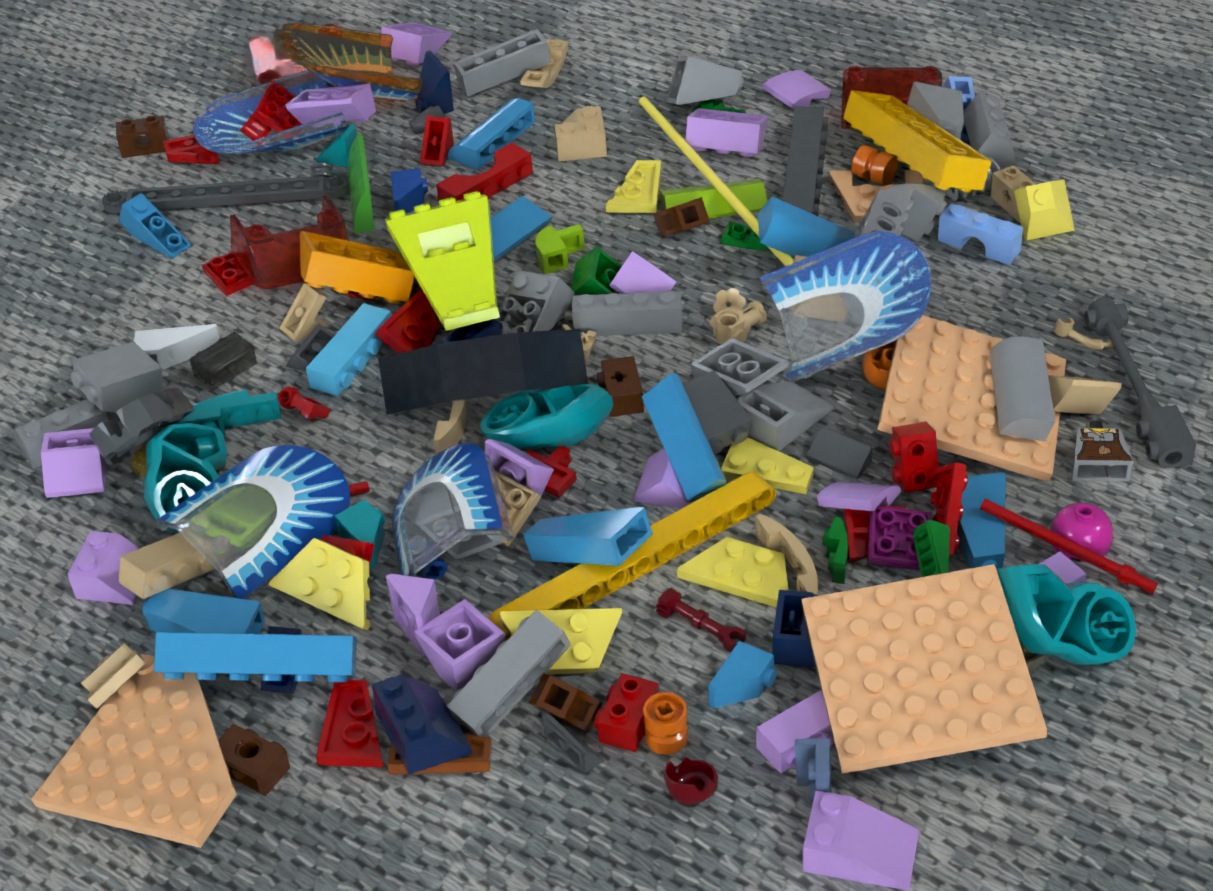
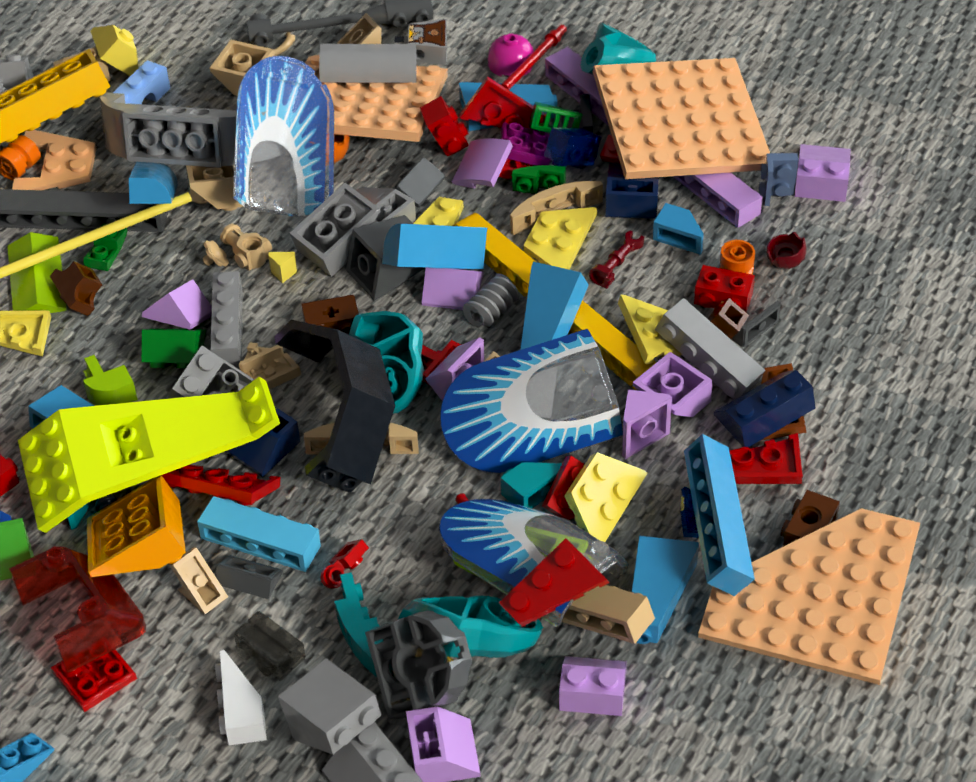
camera: 95 degrees left, 5 degrees up
(112, 674) = (733, 643): tan slope -> none
(179, 503) = (554, 581): none -> red wing
(621, 495) = (491, 301): none -> light grey piece
(703, 344) = (282, 264): none -> light yellow slope
(876, 562) = (572, 147): none -> clear blue brick
(1023, 302) = (236, 61): none -> tan slope

